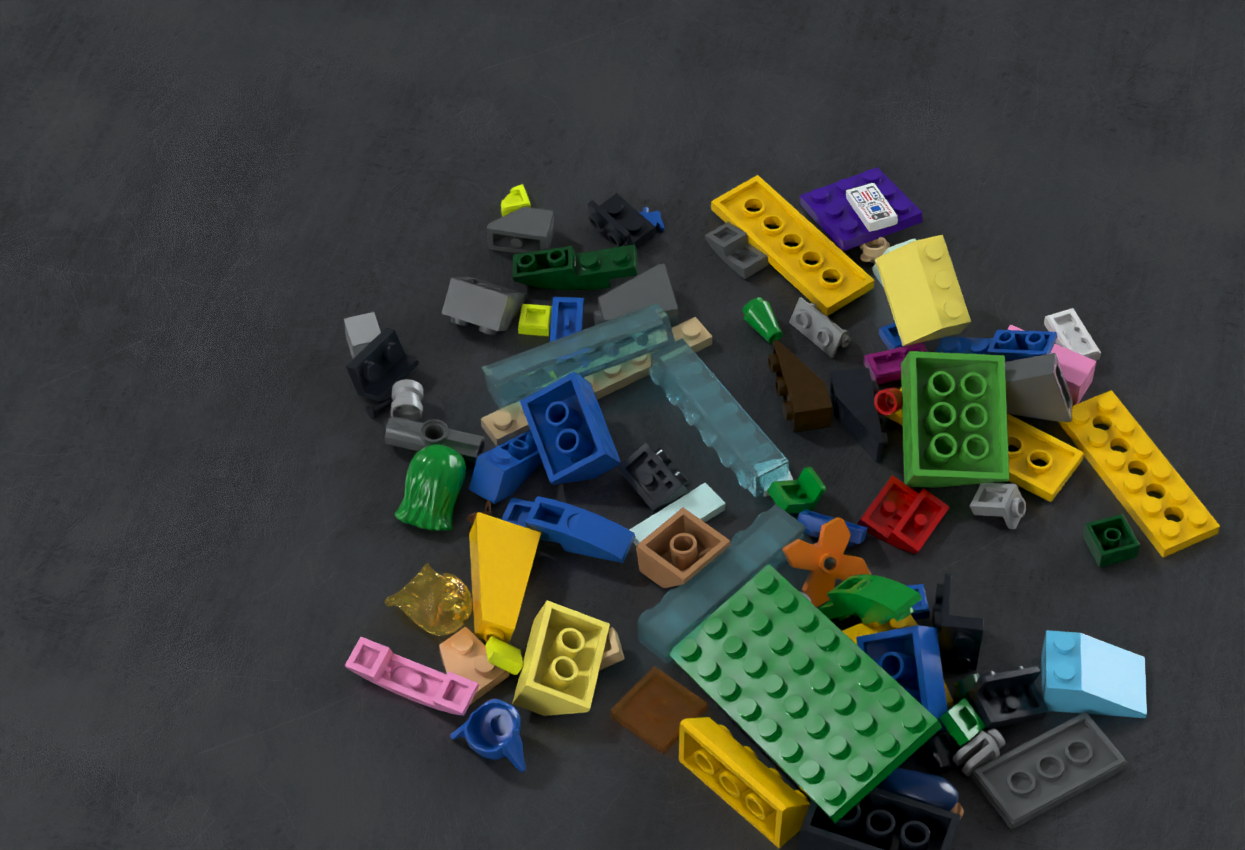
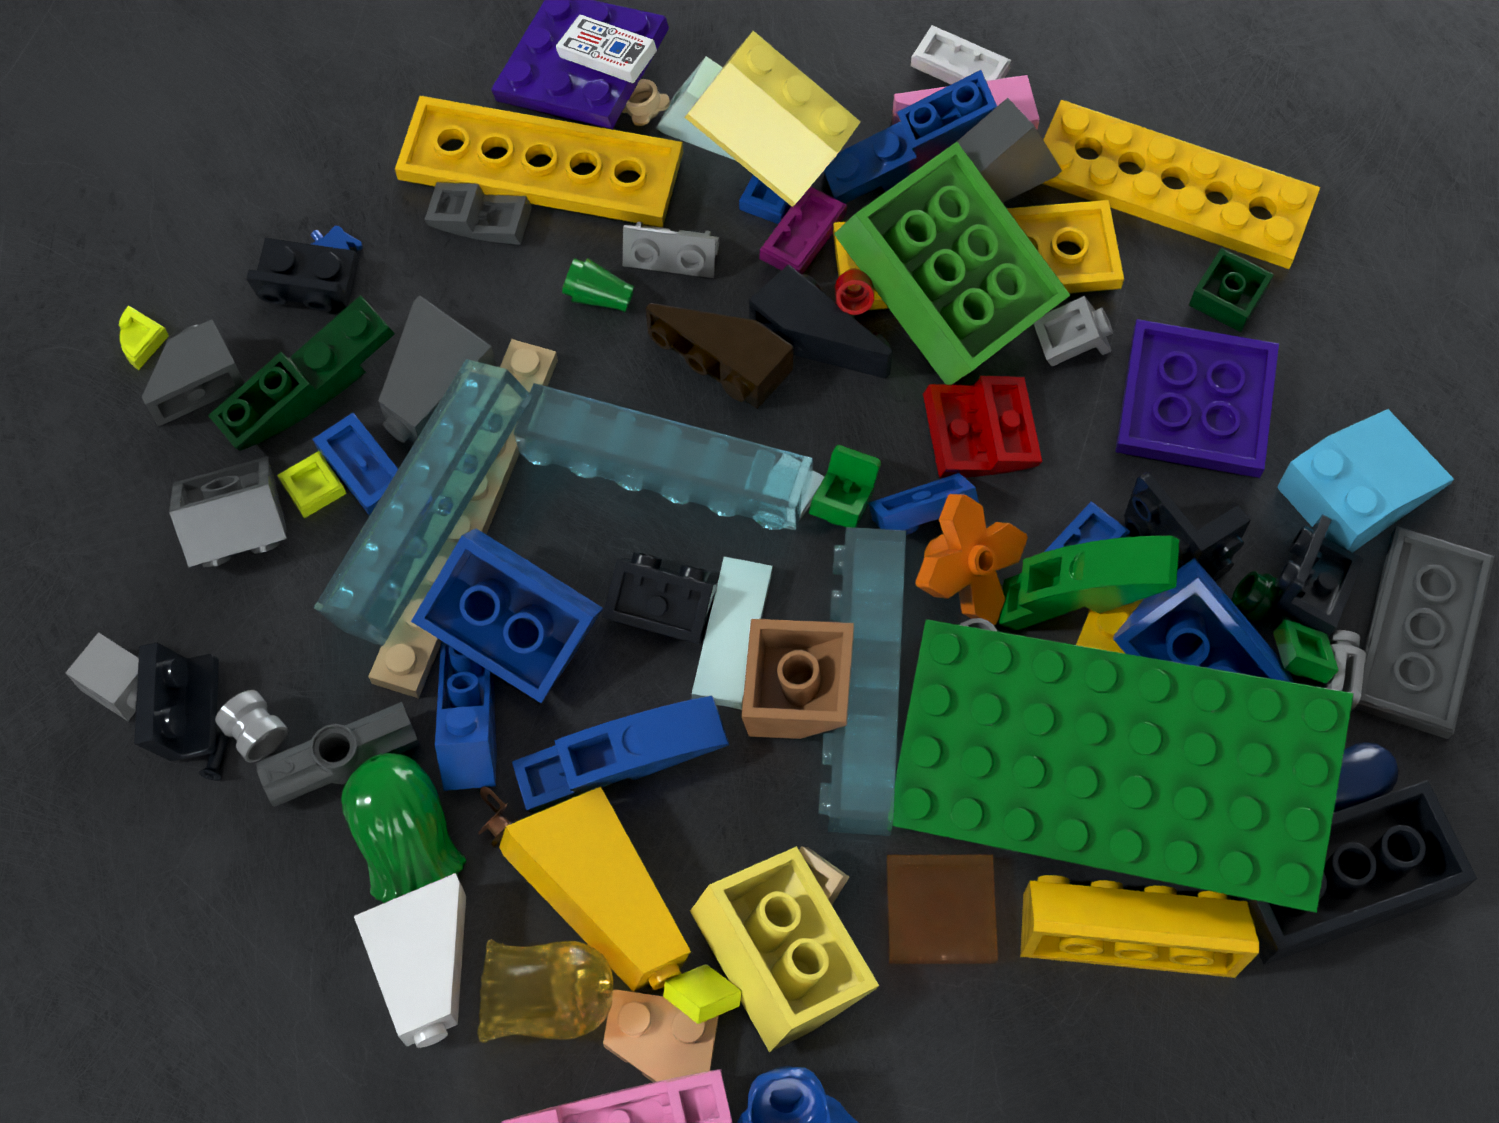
camera: 40 degrees left, 15 degrees up
(391, 549) = (418, 958): none -> white slope
(1036, 578) = (1198, 398): none -> dark purple plate

